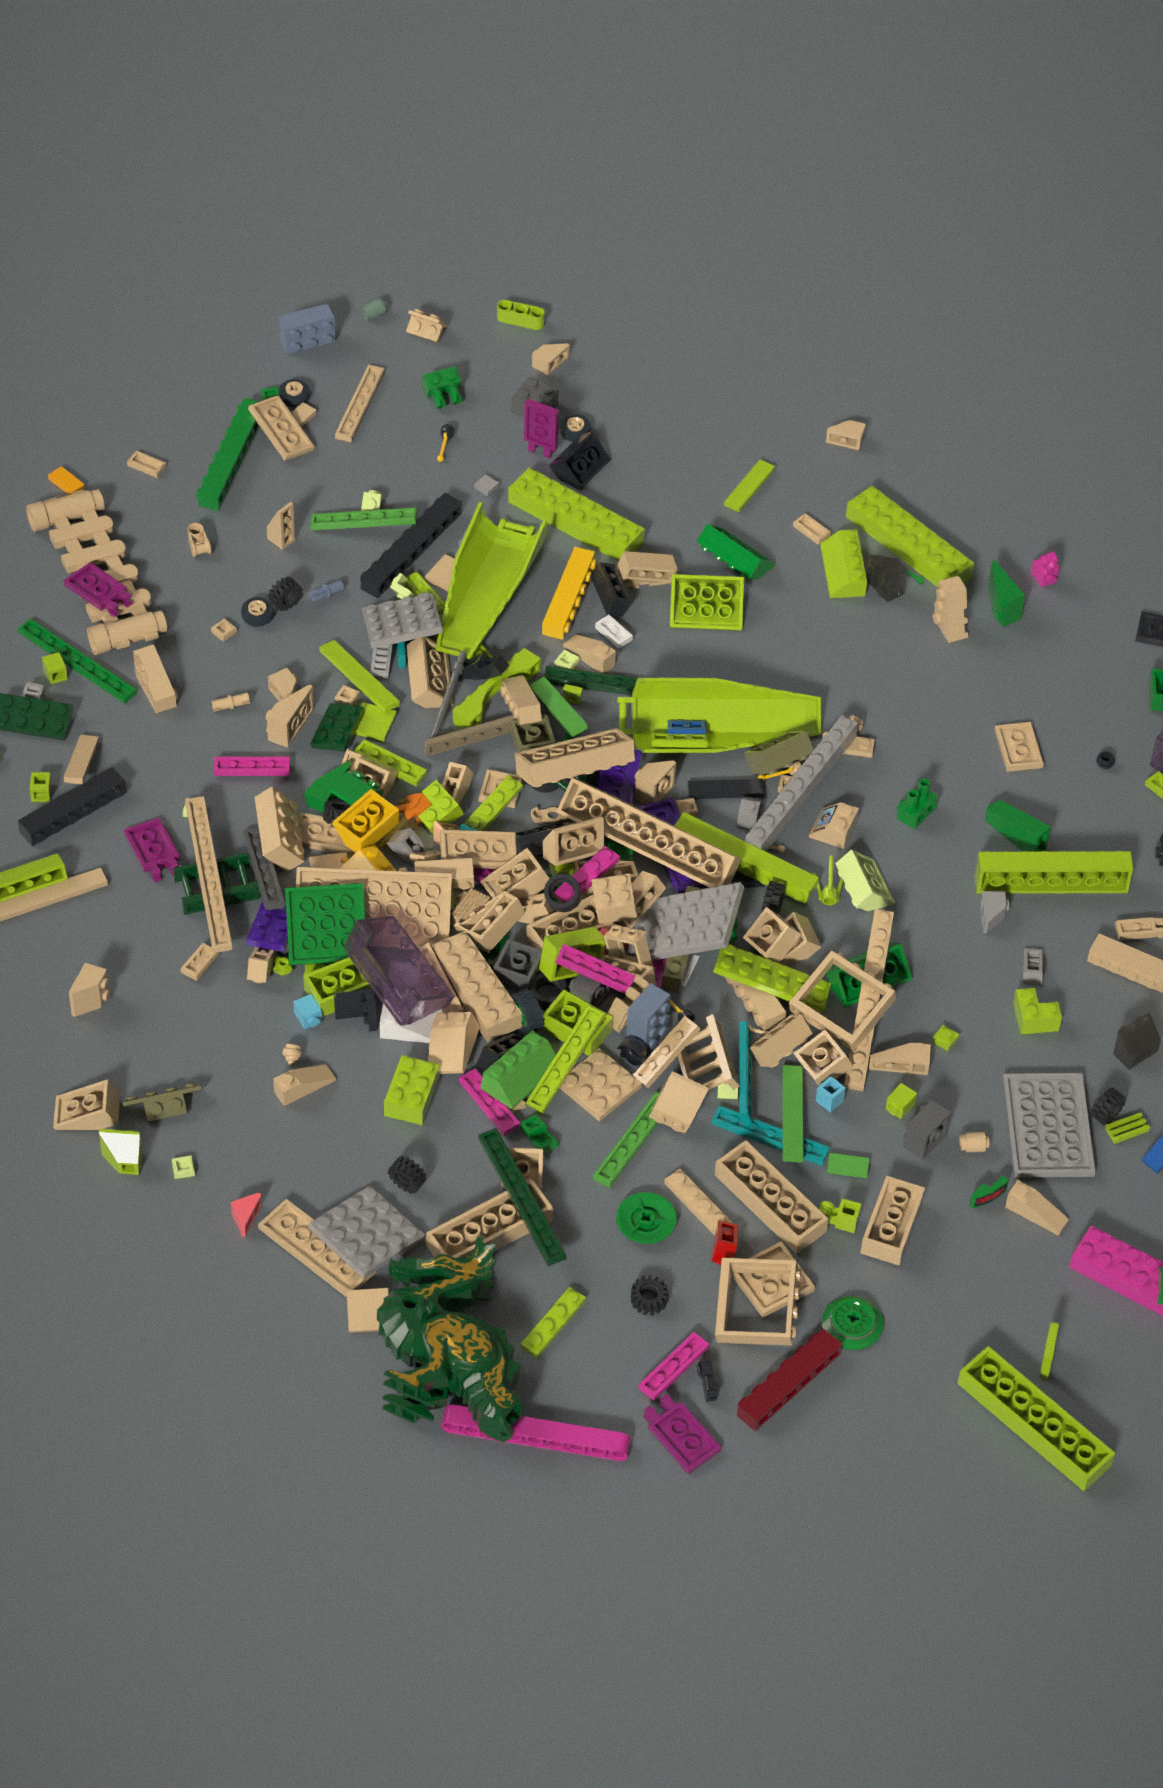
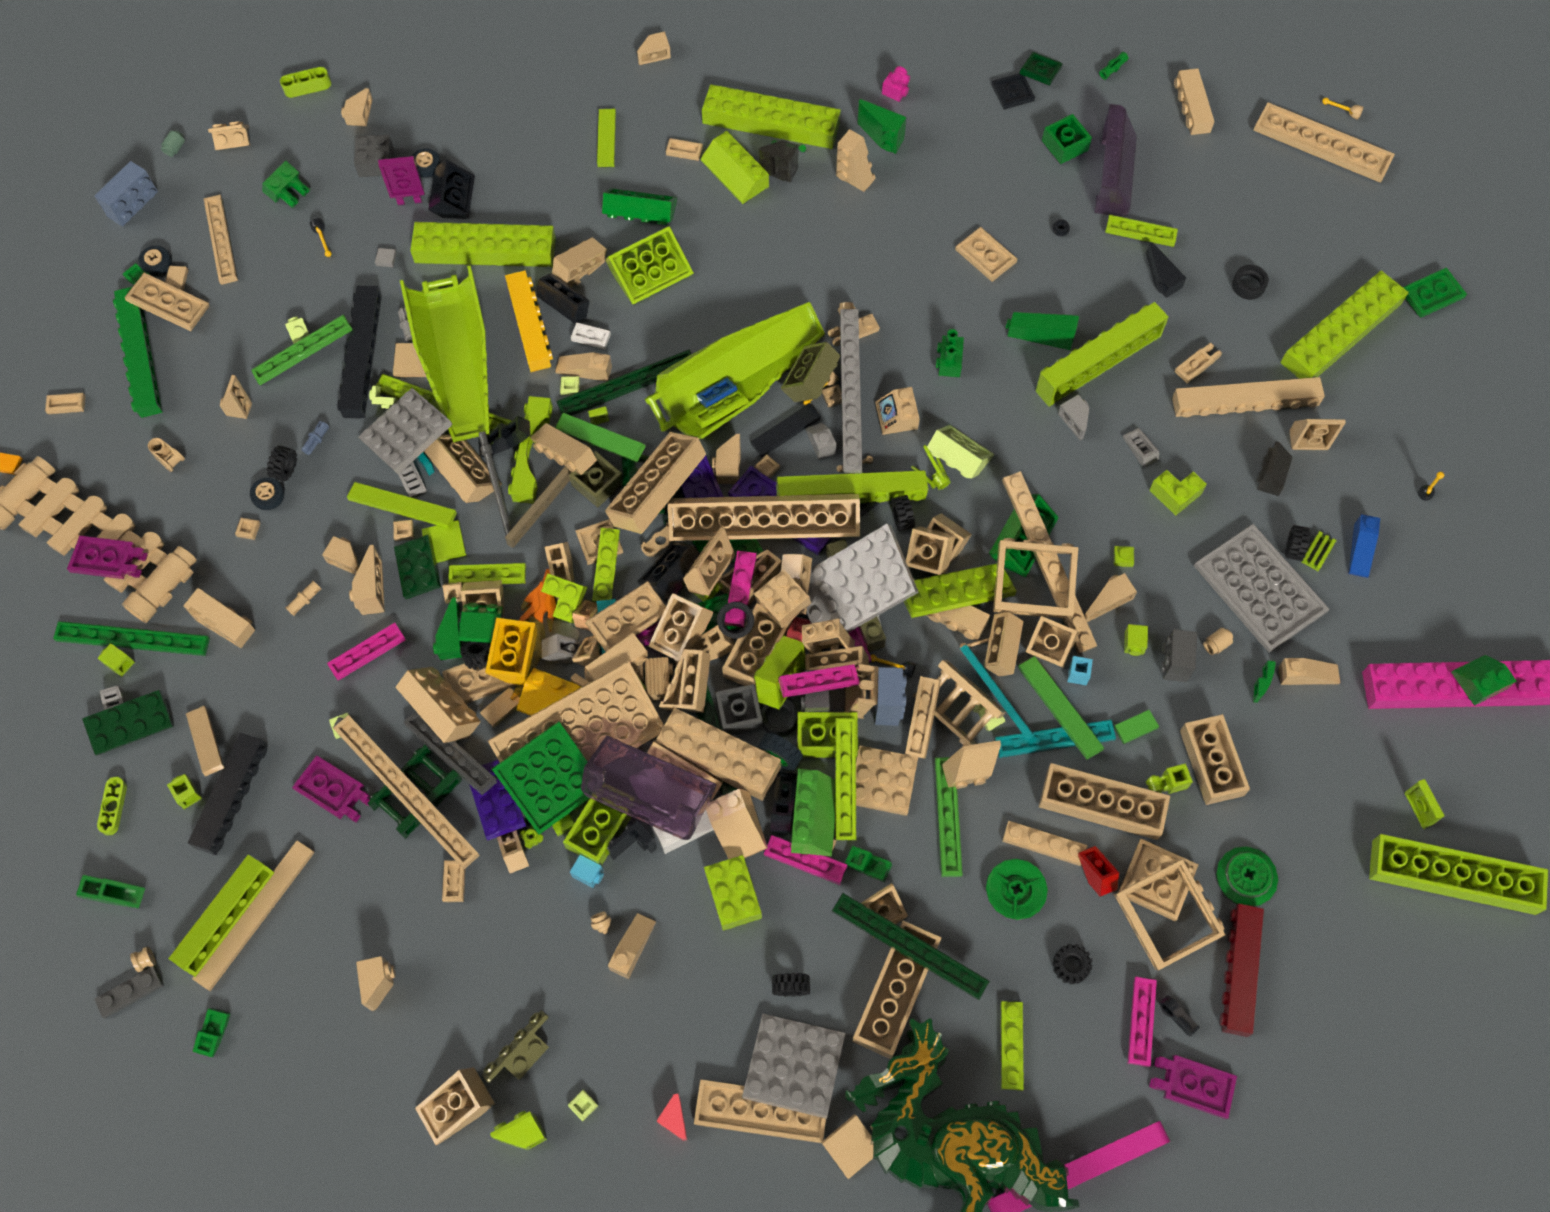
camera: 30 degrees left, 15 degrees up
(634, 1051) = (892, 731): black hair -> none

